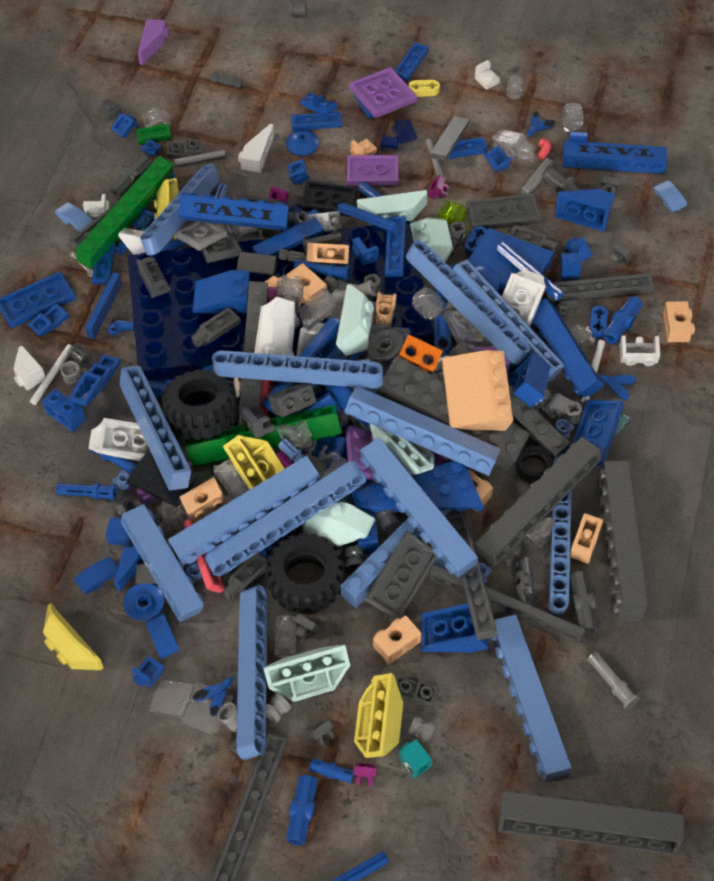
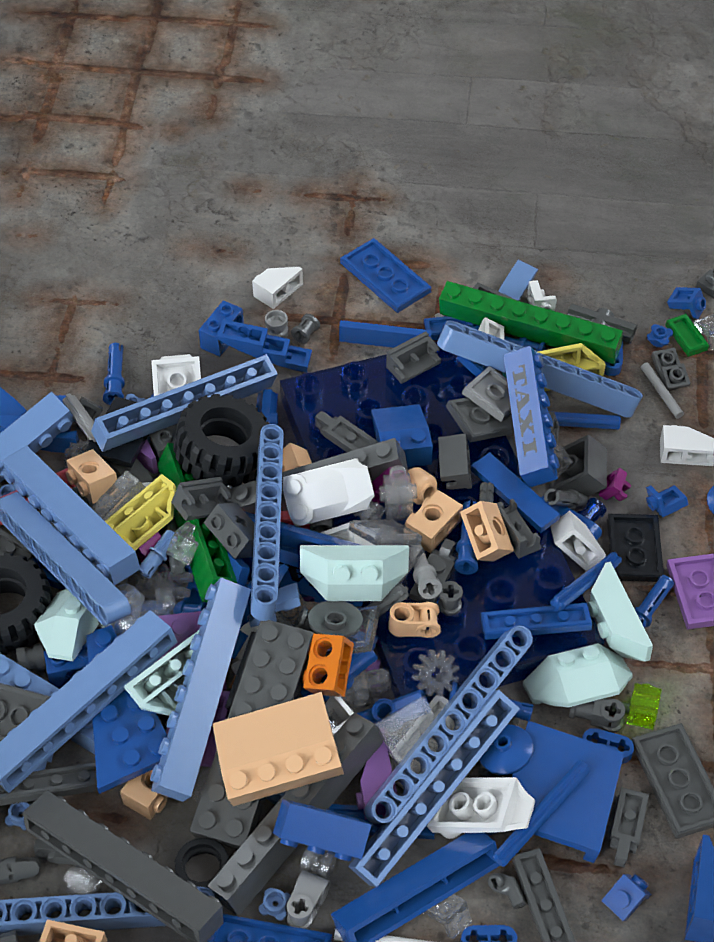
camera: 80 degrees right, 5 degrees down
(49, 321) = (352, 291): blue slope -> none
(50, 376) = (264, 308): white bar -> none
(119, 326) = (355, 354): blue arm -> none
(148, 501) = (80, 415): none -> light grey axle
(362, 253) = (507, 578): blue bracket -> none
(438, 187) = (693, 678): magenta tile -> none
(570, 266) = (584, 883): blue brick -> none

